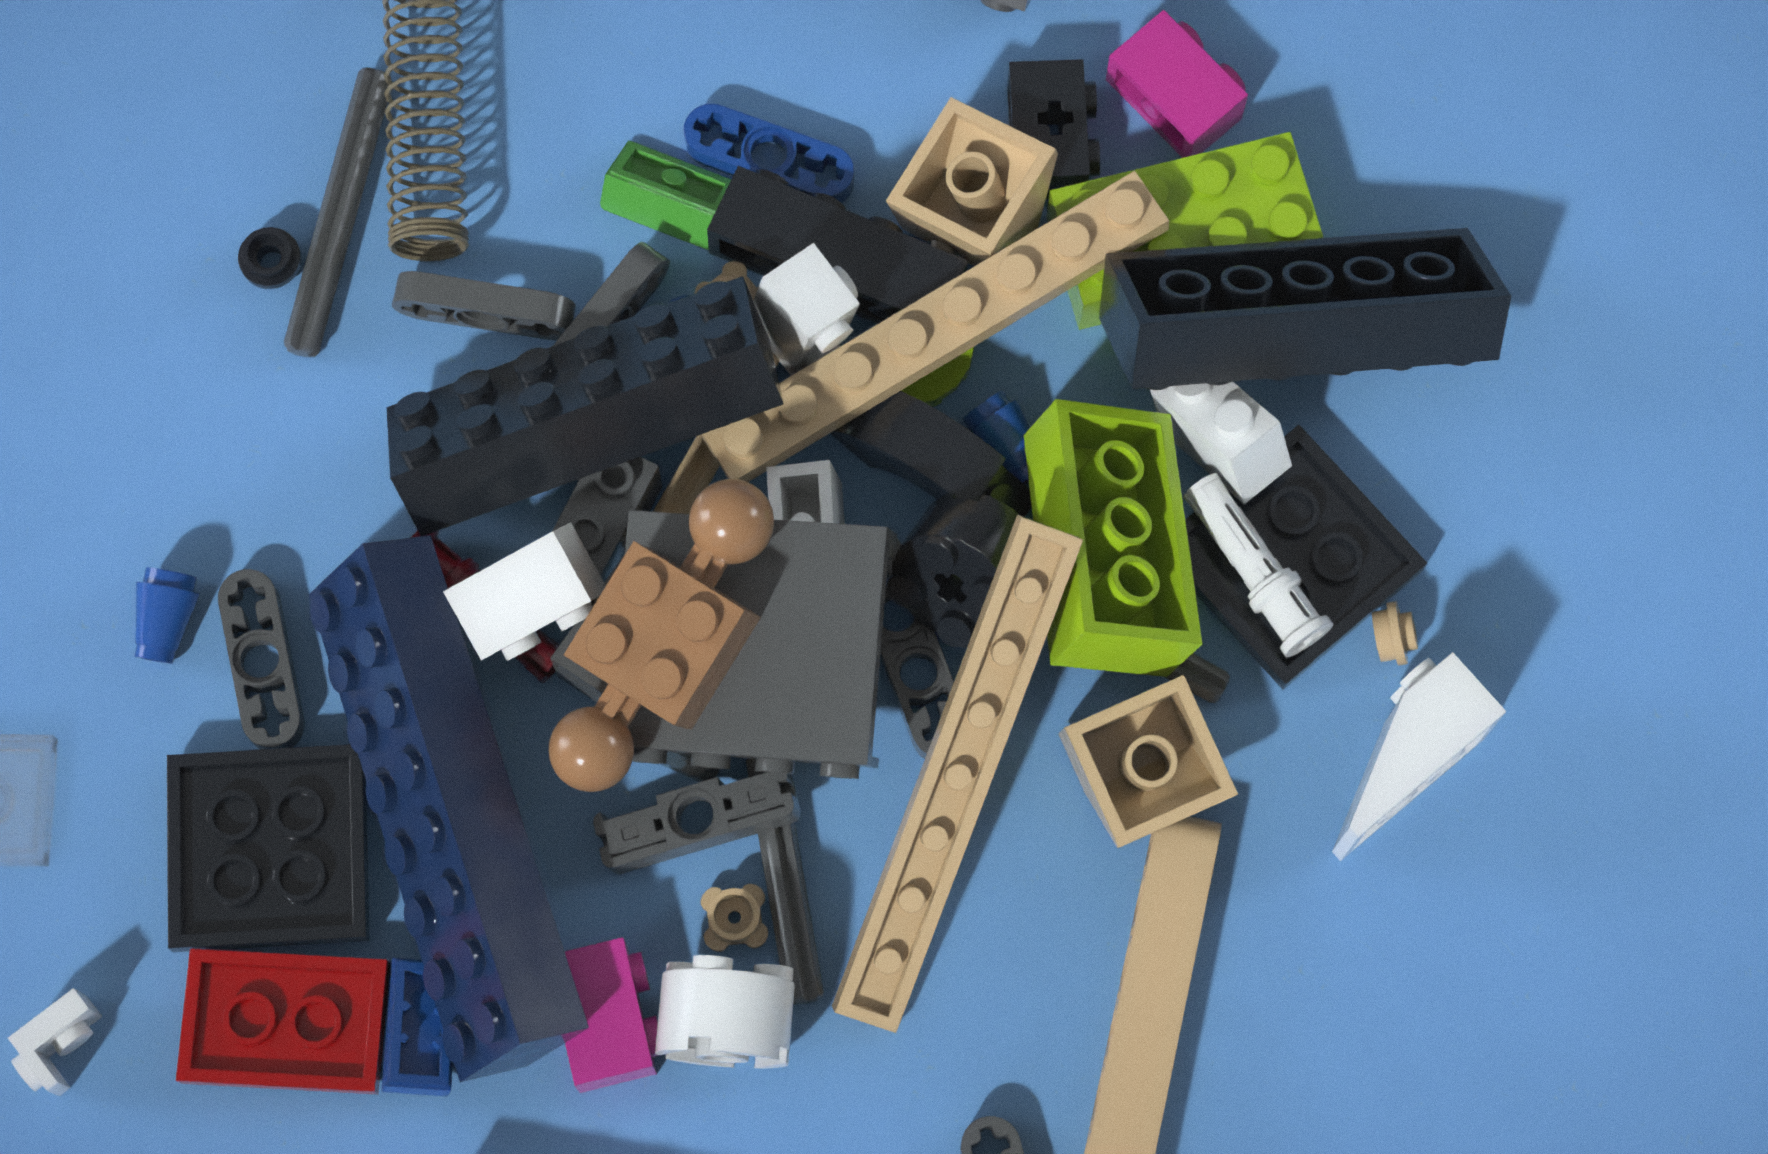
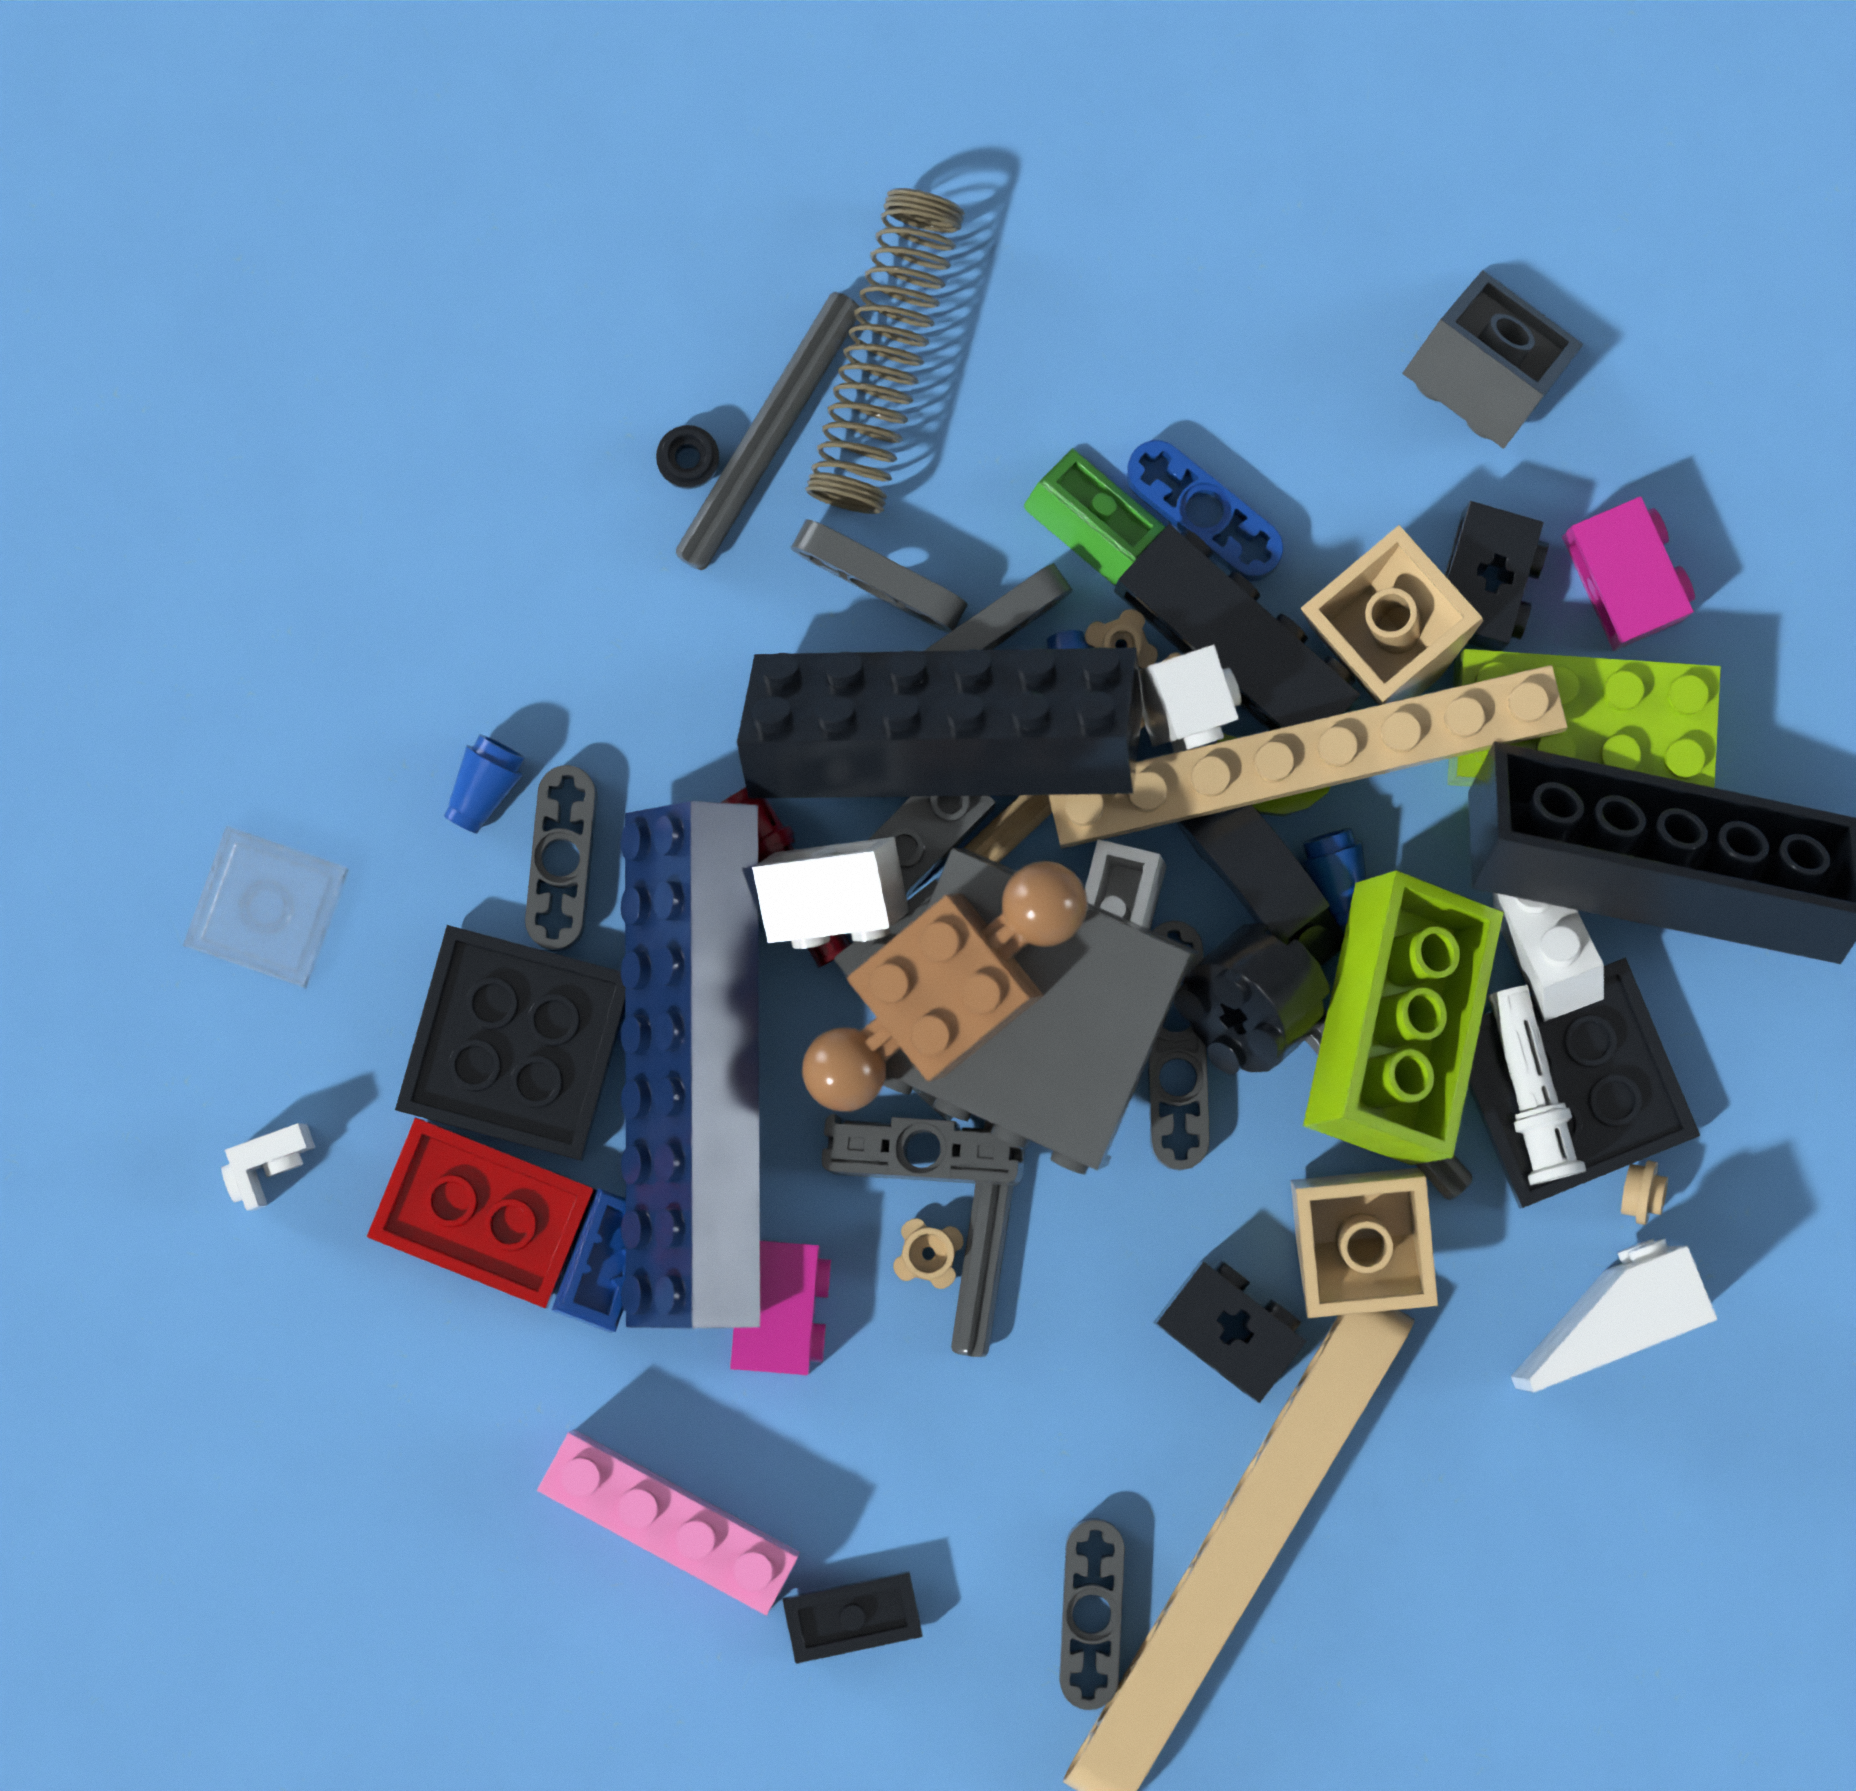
camera: 20 degrees right, 10 degrees up
(725, 1014) = (890, 1348): white brick -> none
(956, 773) = (1181, 1198): tan plate -> none
(1016, 901) = (1250, 1364): none -> black brick

